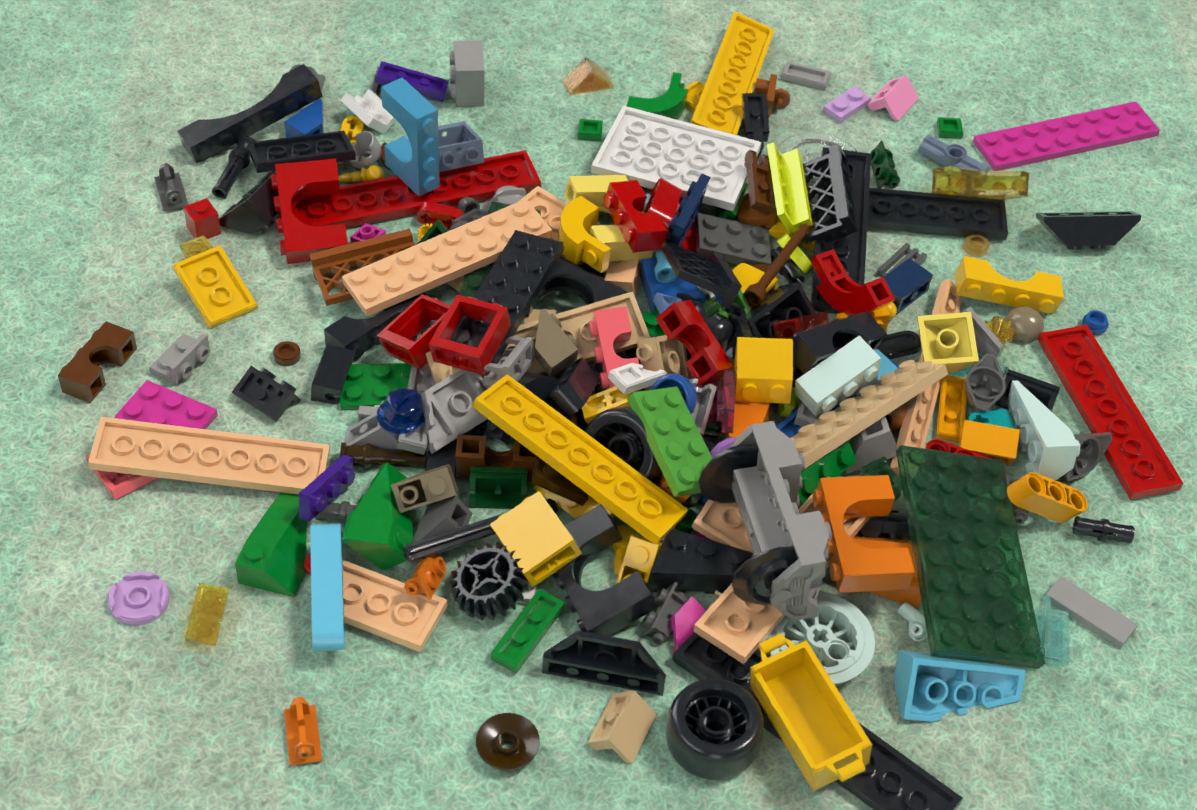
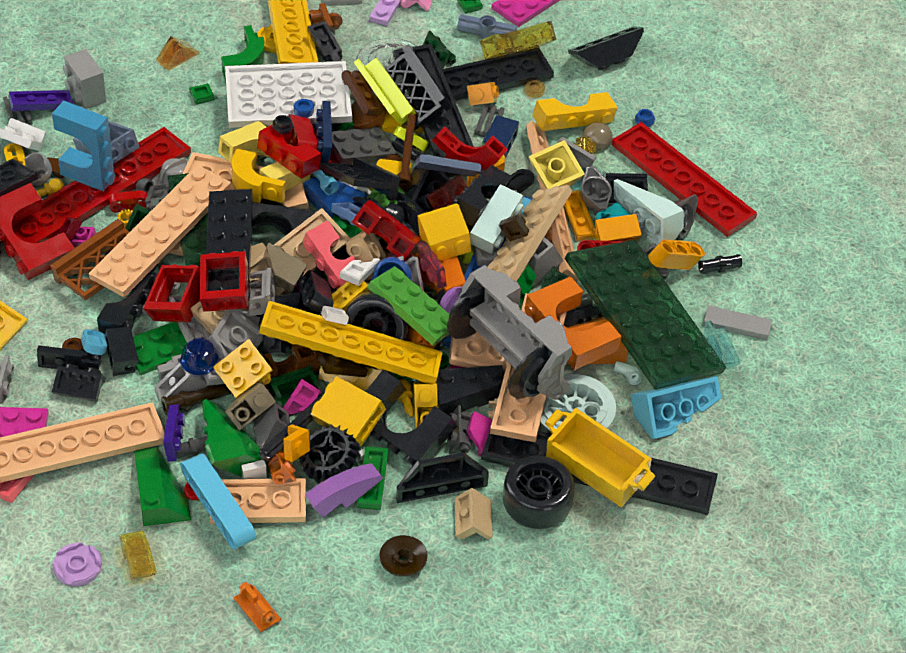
camera: 25 degrees left, 0 degrees up
(259, 356) = (53, 357): none -> black hinge
(307, 354) = (94, 342): none -> medium azure tile
(357, 223) = (70, 227): none -> dark red tile
(394, 567) = (254, 470): none -> white tile
(440, 443) = (243, 369): none -> yellow hinge
(449, 553) = (296, 443): none -> light orange bracket
(481, 629) = (343, 488): none -> medium lavender slope
(497, 501) = (301, 397): none -> dark pink tile
(576, 418) = (334, 315): none -> white tile
(639, 183) = (282, 124): none -> black plate
(682, 176) = (304, 108): none -> blue tile
(813, 294) = (447, 165): none -> sand blue tile
(851, 392) = (514, 227): none -> dark brown tile
(908, 230) = (483, 93): none -> light orange bracket

